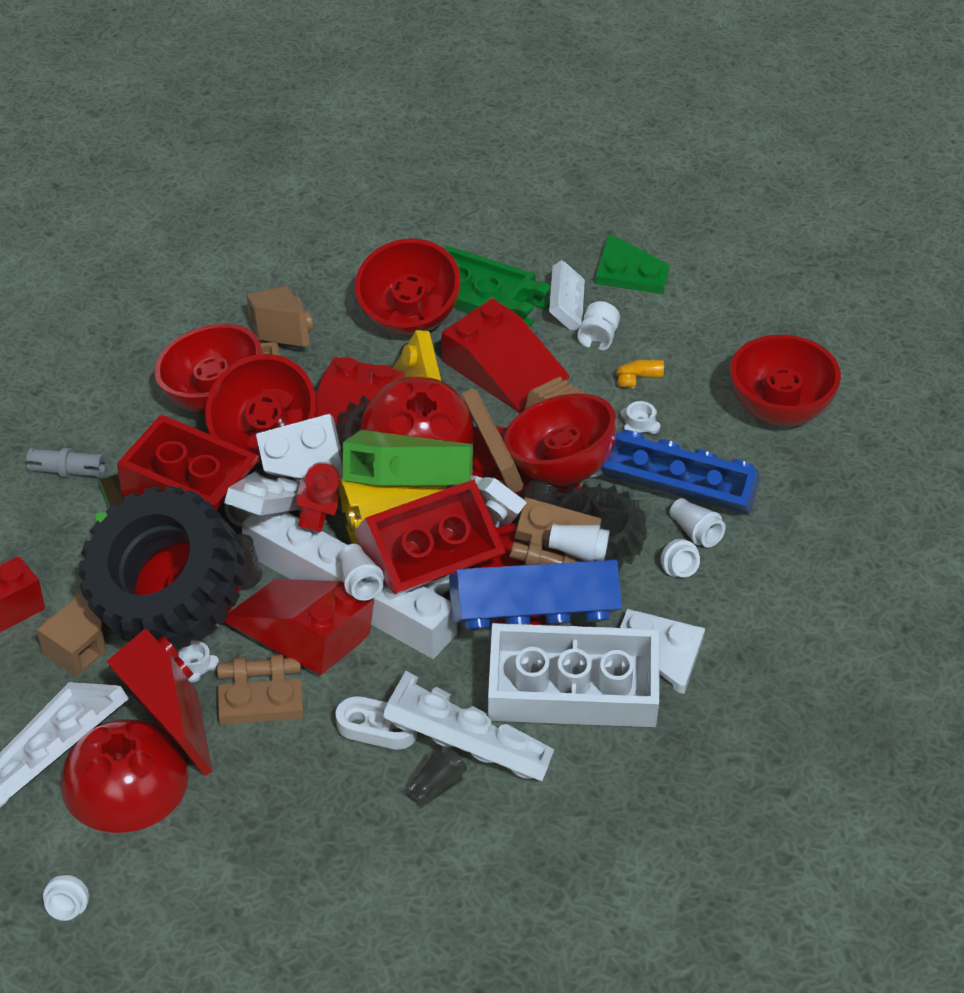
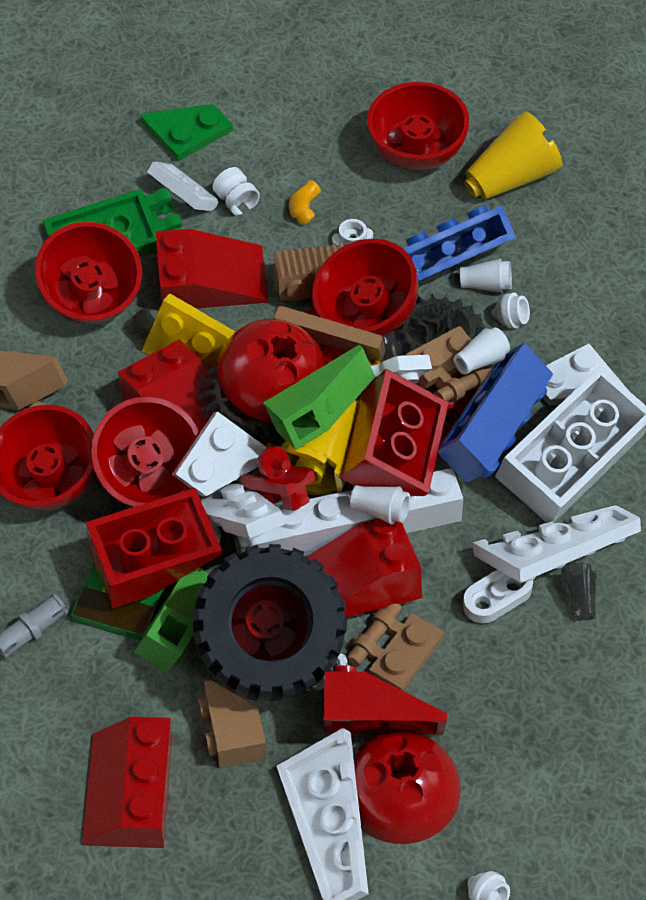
camera: 50 degrees left, 10 degrees up
(831, 460) = (513, 159): none -> yellow cone

